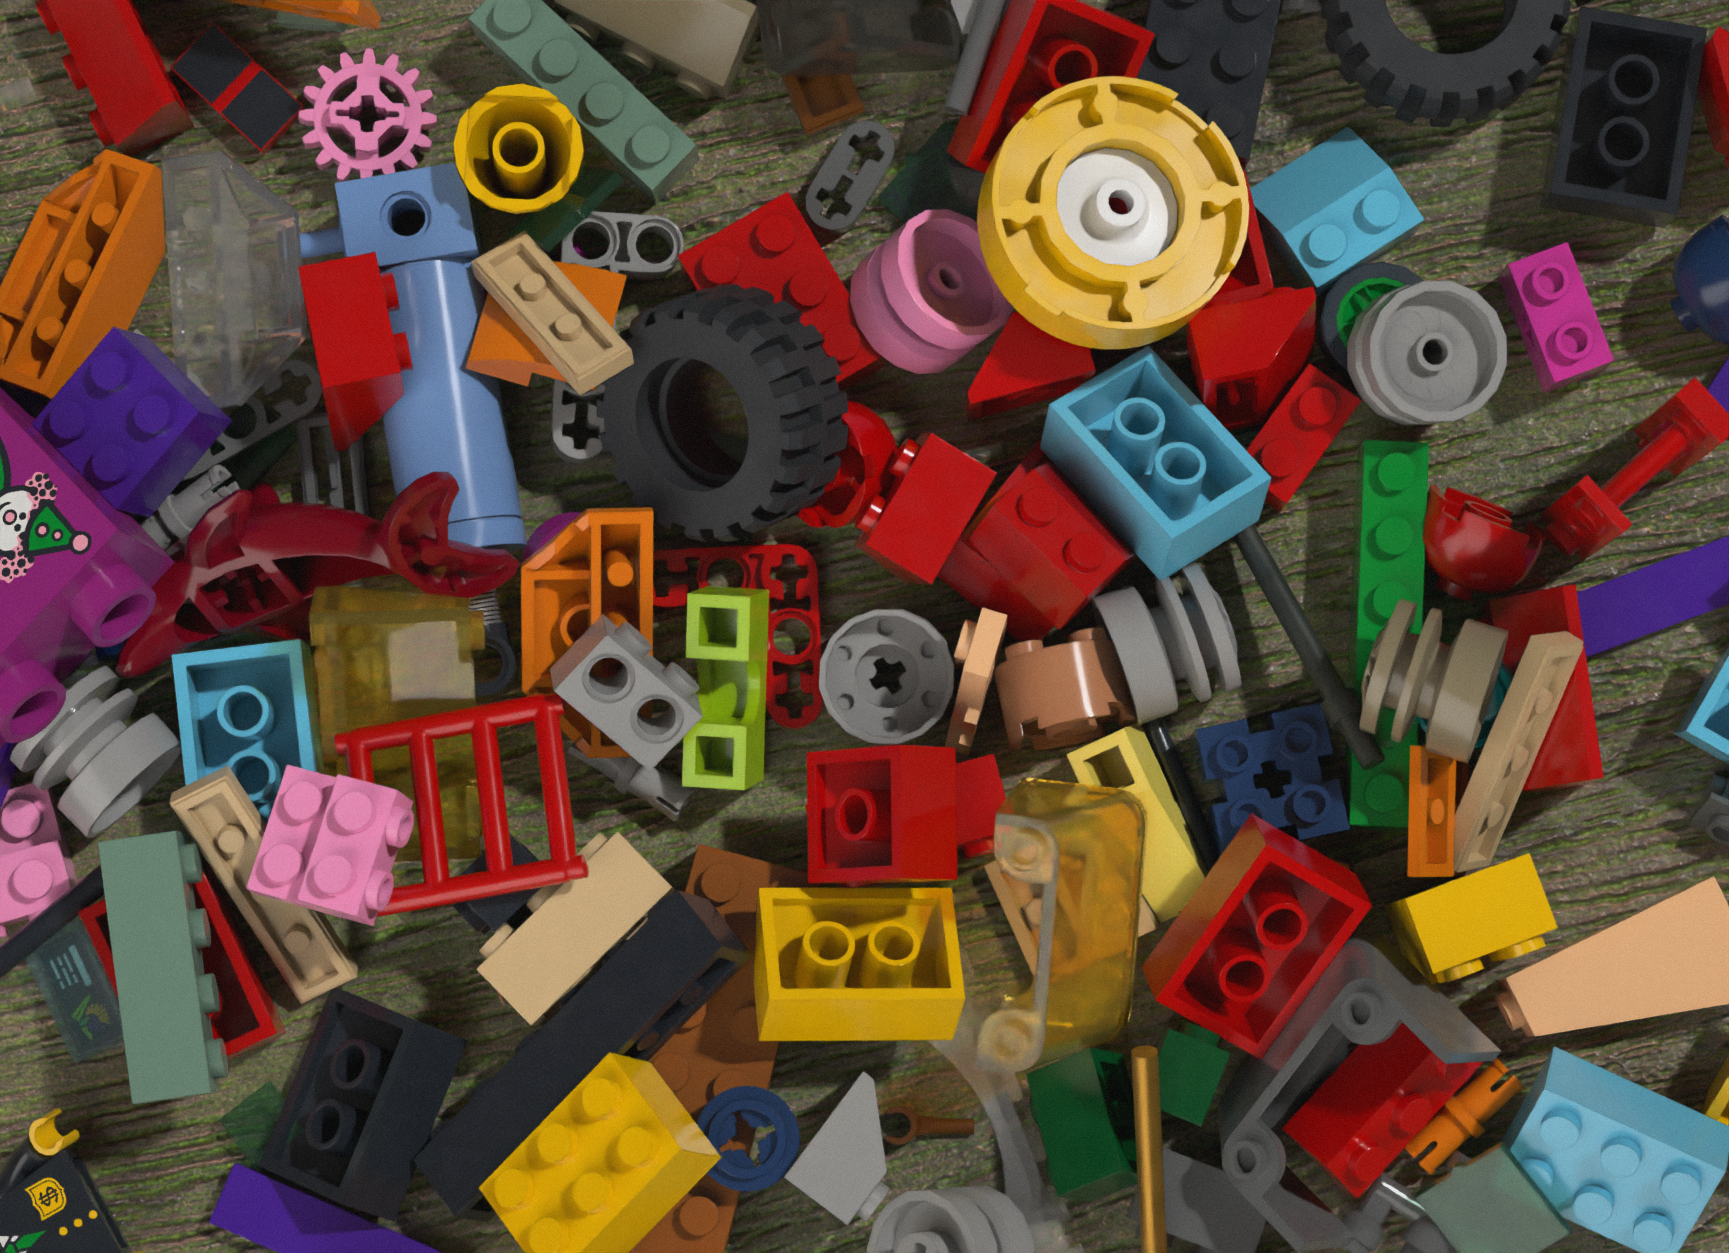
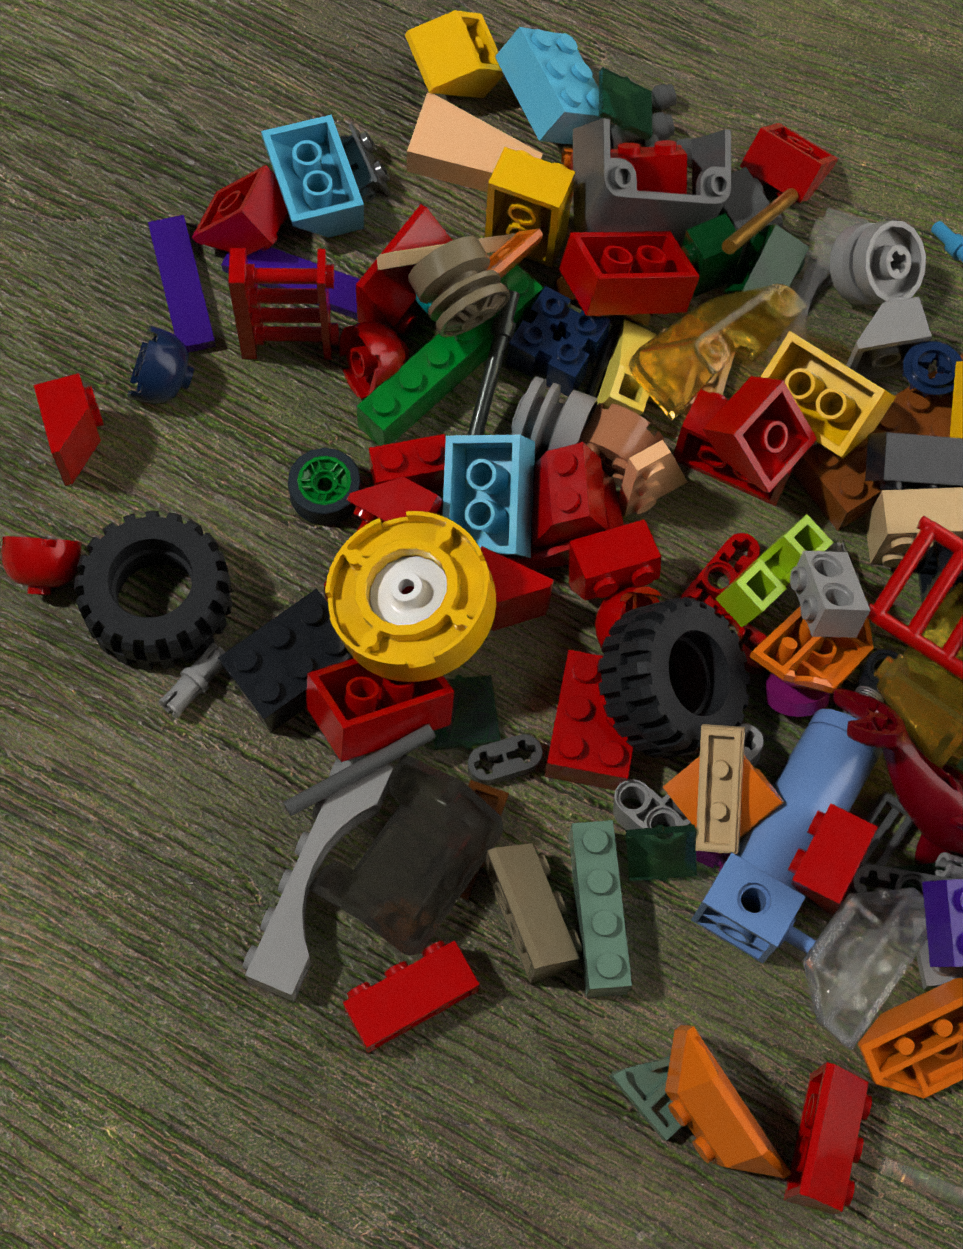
camera: 145 degrees left, 15 degrees down
(237, 88) = (773, 1069): black tile -> none
(337, 117) = (733, 1001): bright pink gear -> none
(518, 149) = (672, 875): yellow cone -> none
(879, 713) = (697, 497): light grey wheel -> none
(927, 293) = (522, 659): bright pink wheel -> none
(928, 1125) = (838, 341): reddish brown hand -> none
(1334, 210) = (295, 547): medium azure slope -> none
(1451, 379) = (322, 435): light grey wheel -> none
(1555, 317) = (245, 420): dark pink brick -> none
(1623, 117) = (129, 470): black brick -> none

